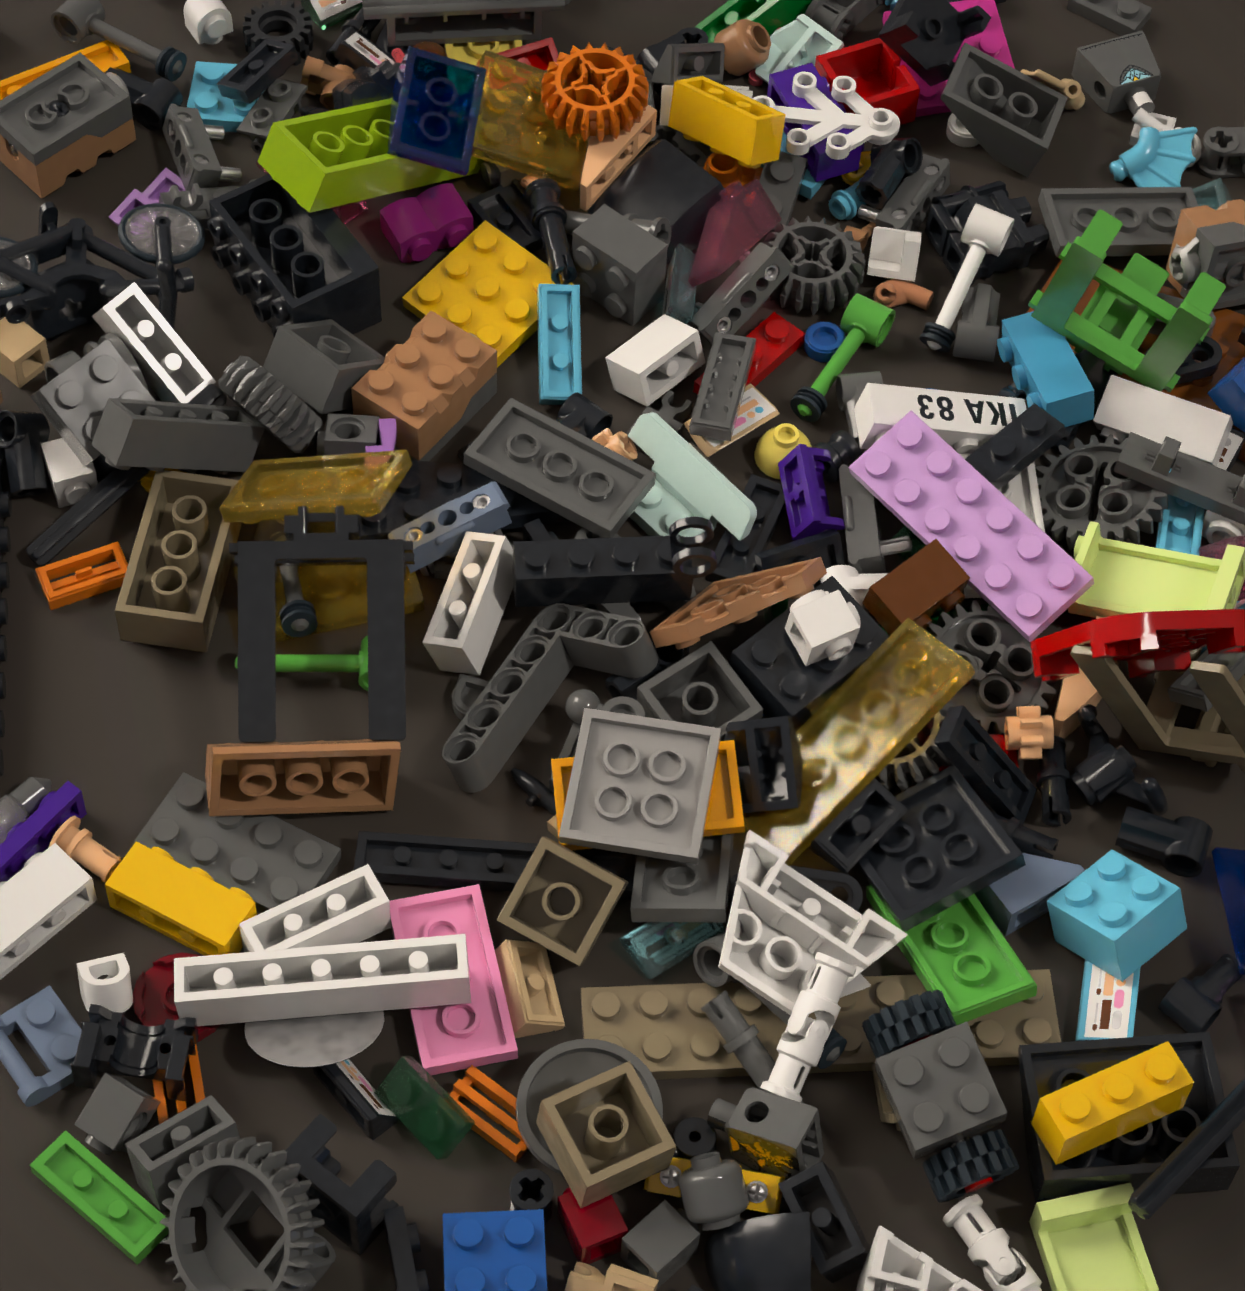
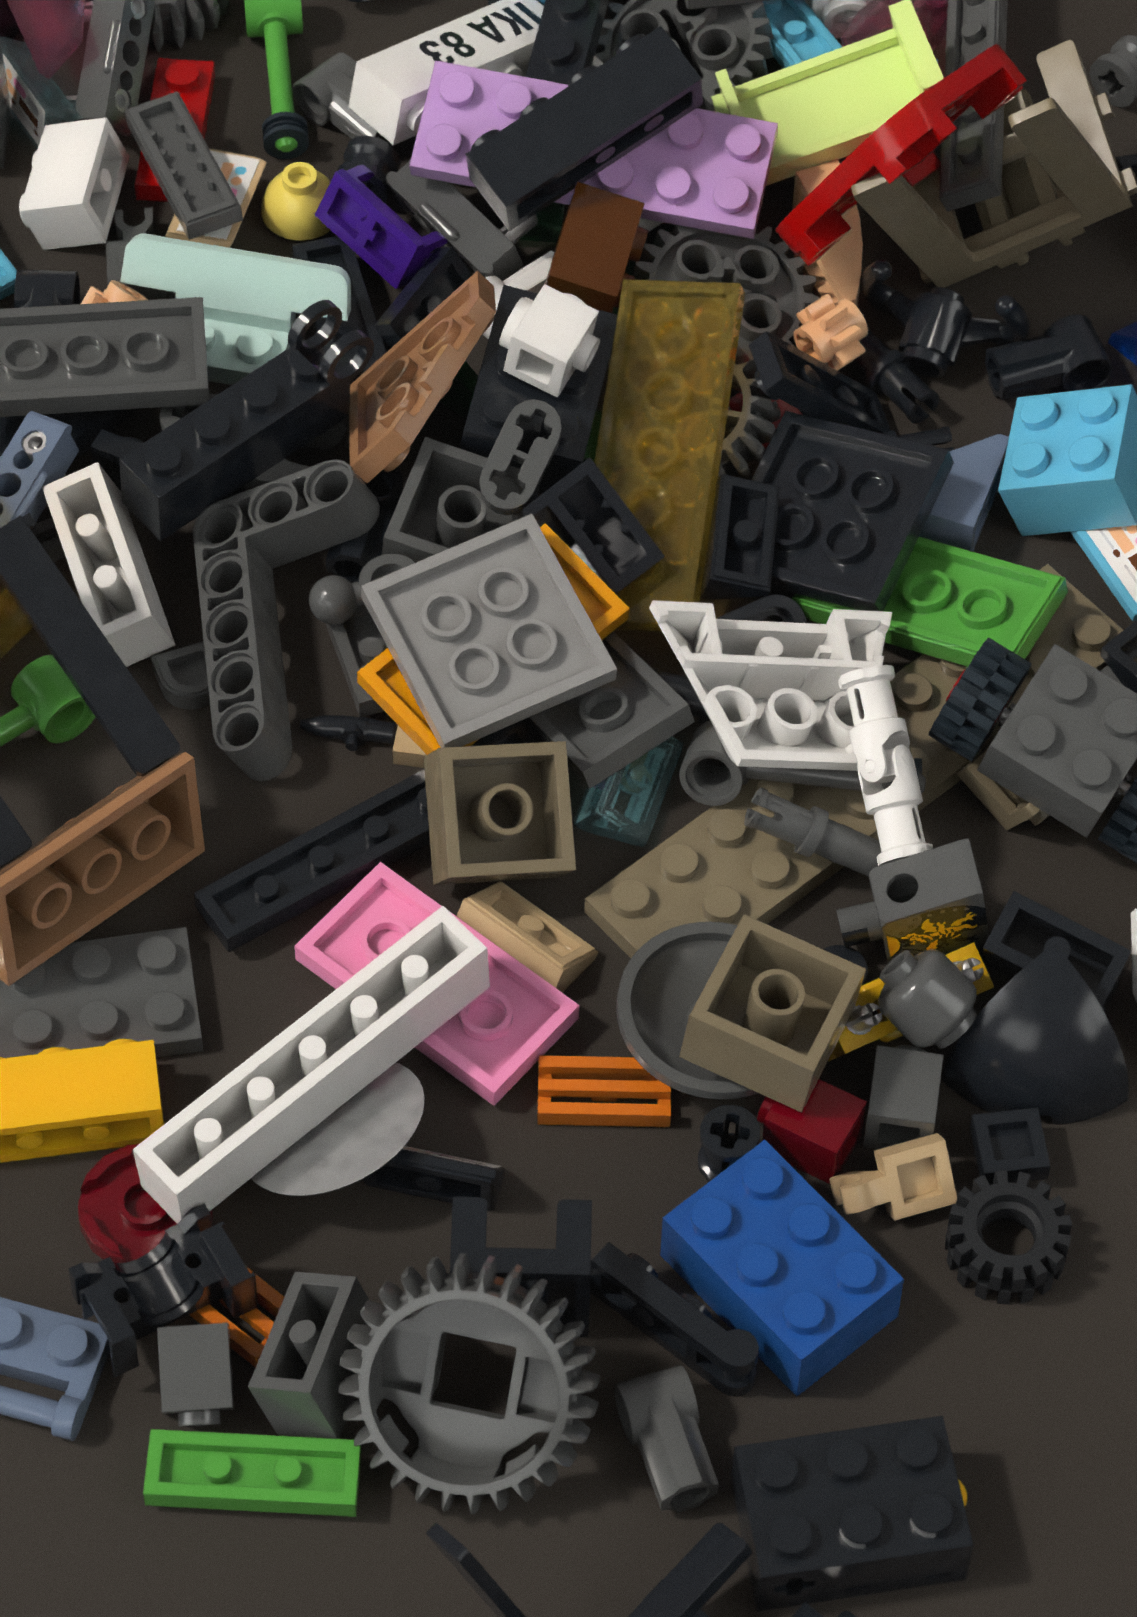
camera: 35 degrees left, 0 degrees up
(112, 992) = (50, 1243): white plate -> none
(331, 914) = (243, 1007): white brick -> none
(424, 1107) = (528, 1132): clear green plate -> none
(745, 680) = (507, 450): none -> dark grey beam
(823, 340) = (239, 60): blue tile -> none
(961, 506) = (584, 127): none -> black brick

